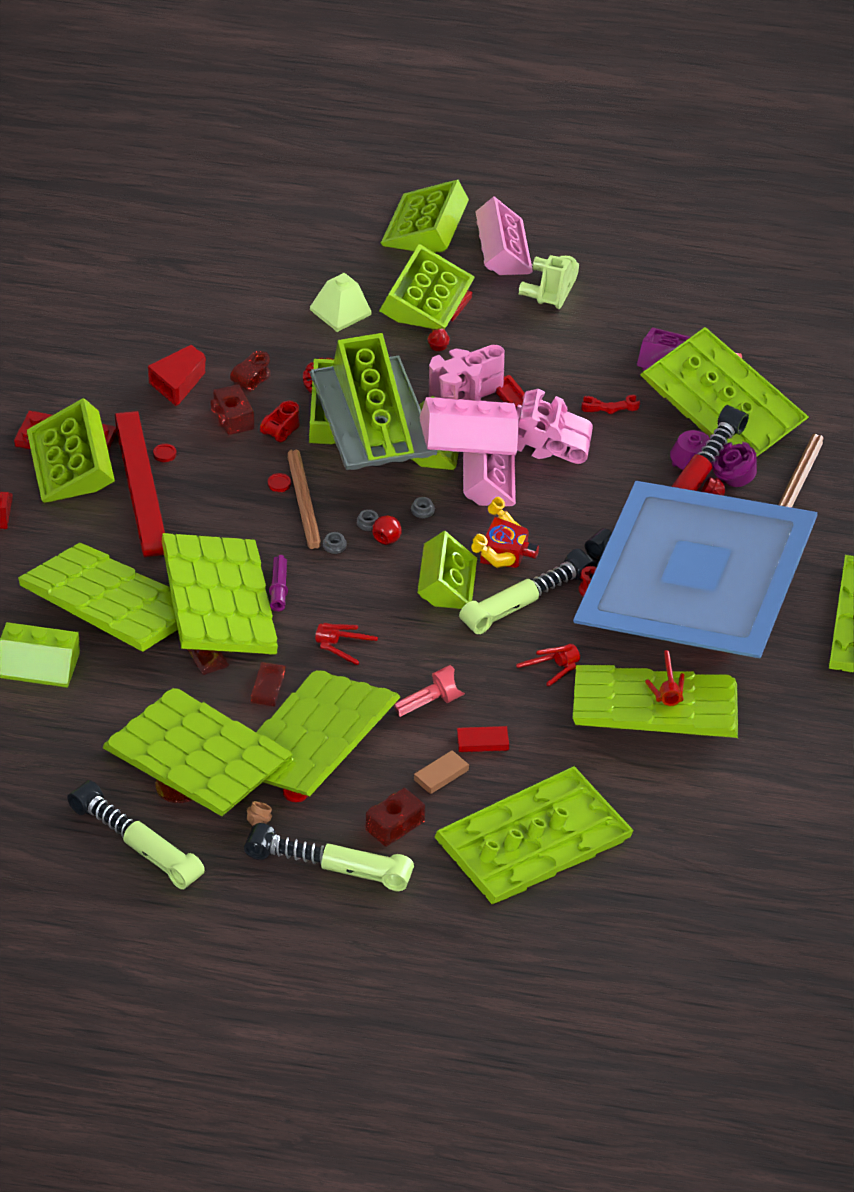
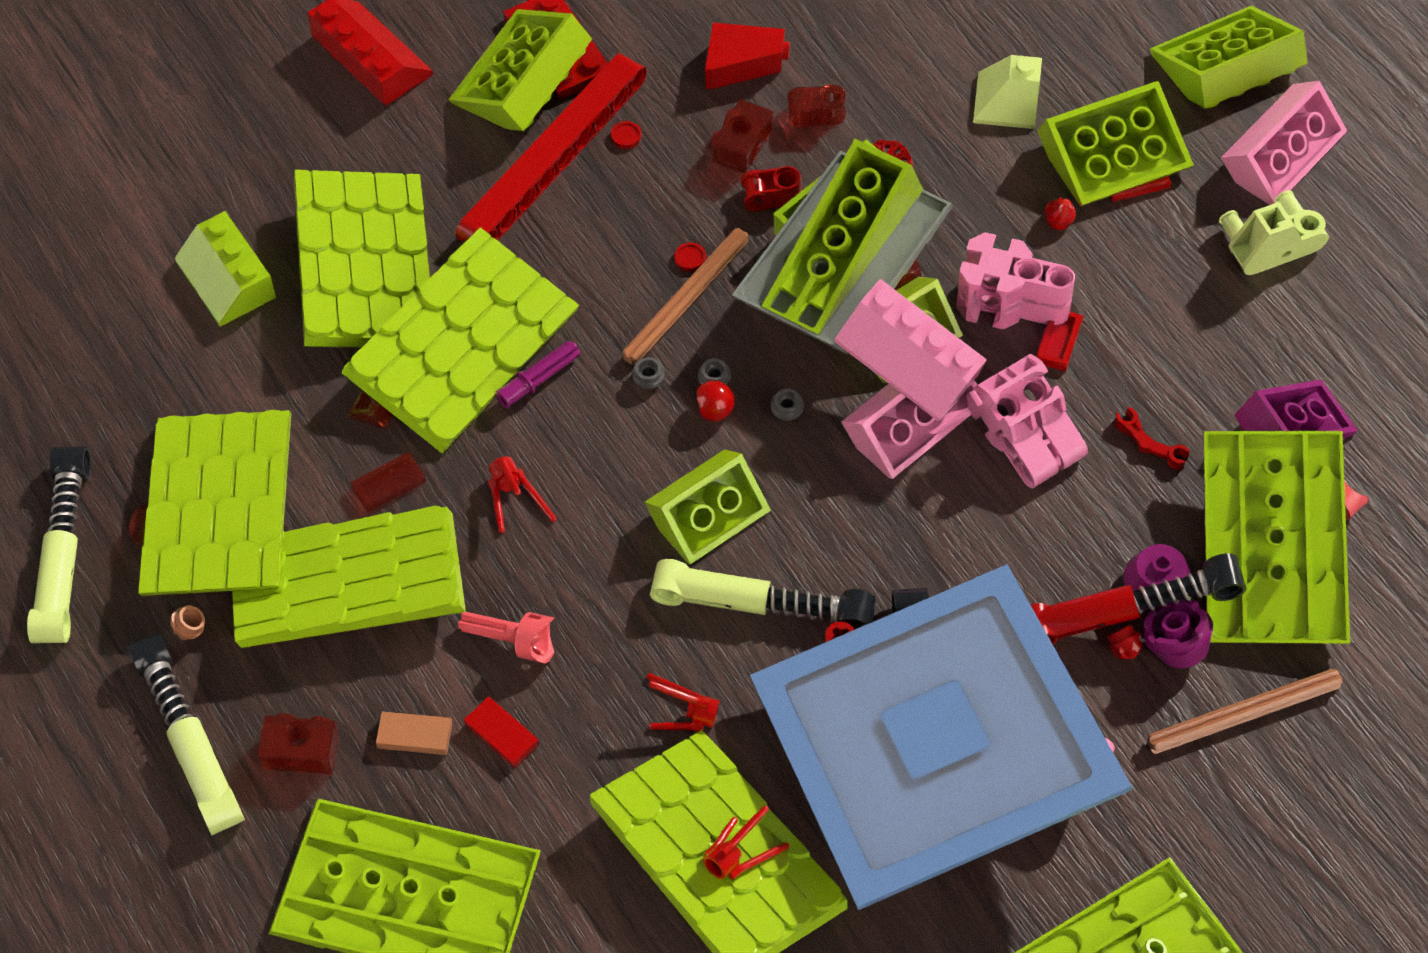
camera: 50 degrees right, 15 degrees up
(505, 540) = (810, 517): torso -> none

